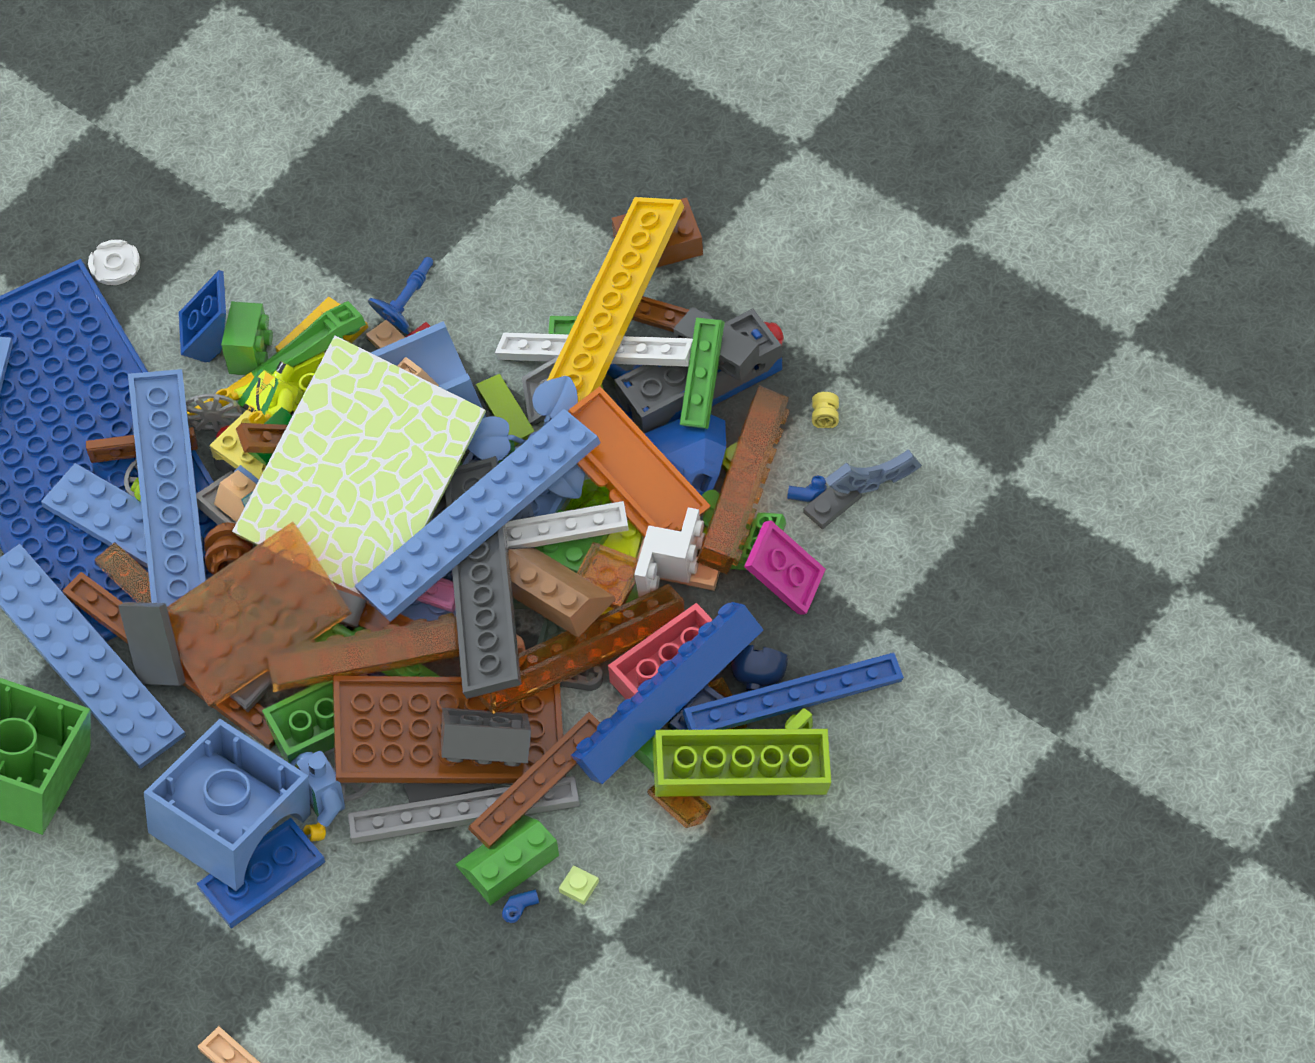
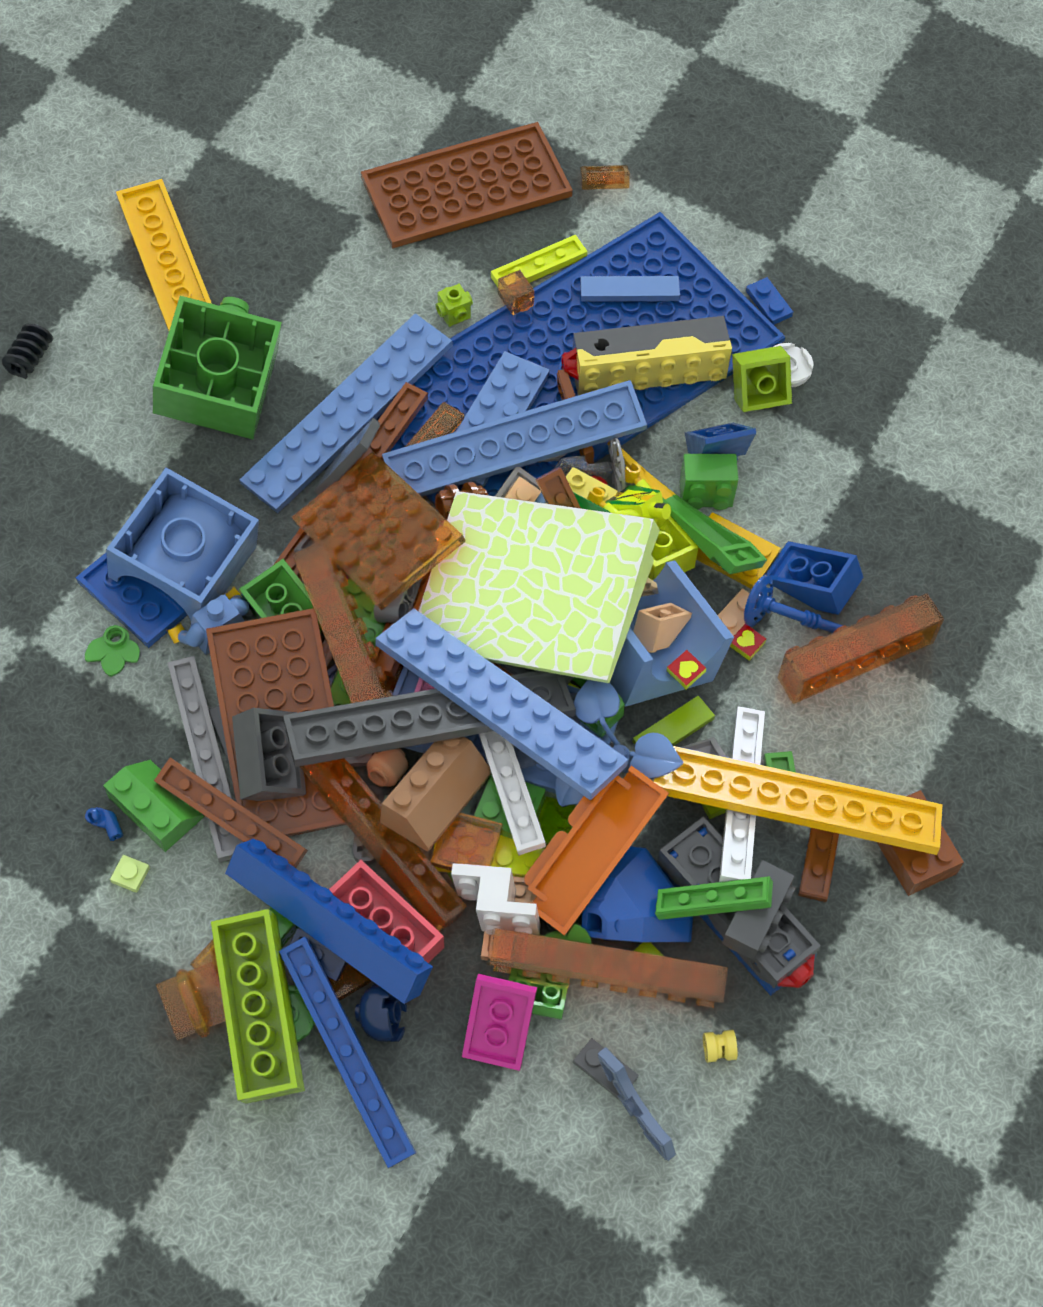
camera: 75 degrees right, 5 degrees up
(31, 267) = (769, 301): none -> blue plate
(89, 364) = (650, 355): none -> light yellow piece
(136, 277) = (762, 378): none -> lime brick
(203, 449) = (598, 469): none -> clear slope
(326, 894) = (113, 654): none -> bright green plate
(366, 271) = (816, 576): none -> blue slope
(456, 243) = (859, 647): none -> clear orange brick
(463, 365) = (686, 669): none -> tile
(725, 823) = (193, 1000): none -> clear orange tile
(802, 720) = (318, 1062): lime plate -> none
(810, 492) = (614, 1043): blue arm -> none

